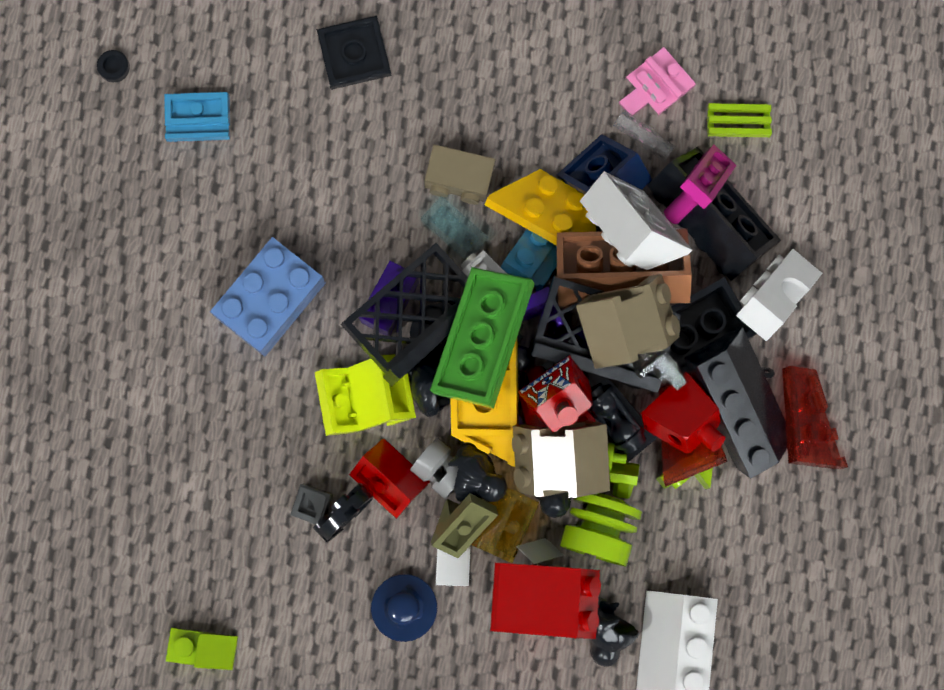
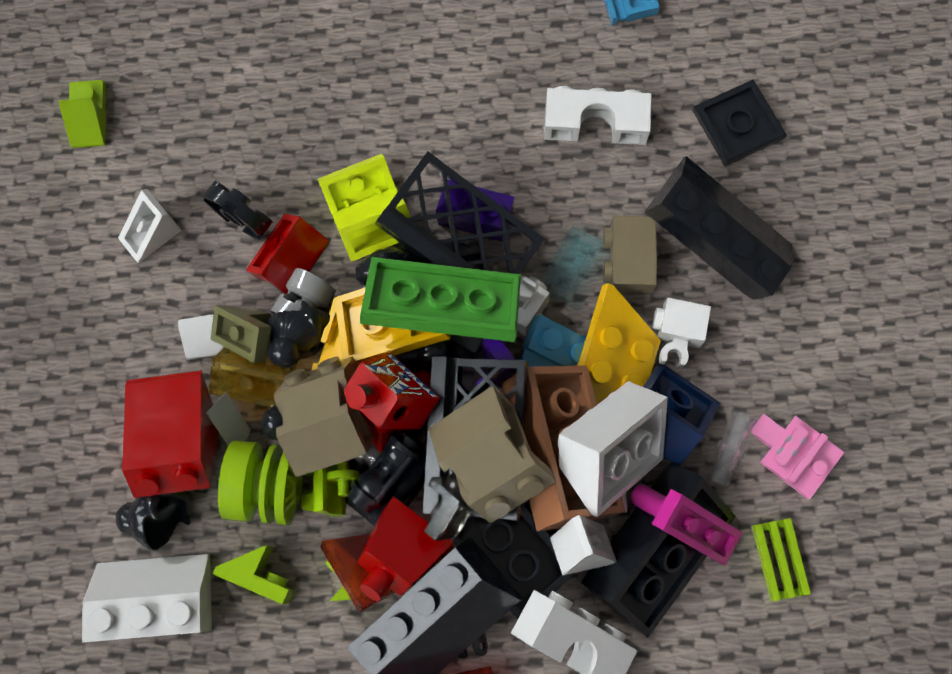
camera: 85 degrees right, 5 degrees down
(268, 296) = (451, 92): medium blue brick -> none
(311, 503) = (248, 180): dark grey tile -> none
(325, 146) = (624, 111): none -> white arch
(337, 603) = (147, 227): none -> white slope
(404, 608) = (153, 297): dark blue plate -> none
(457, 91) = (722, 231): none -> black slope
(532, 148) = (682, 326): none -> white brick
(670, 557) = (248, 571): none -> lime slope
(709, 270) = (582, 546): none -> white slope

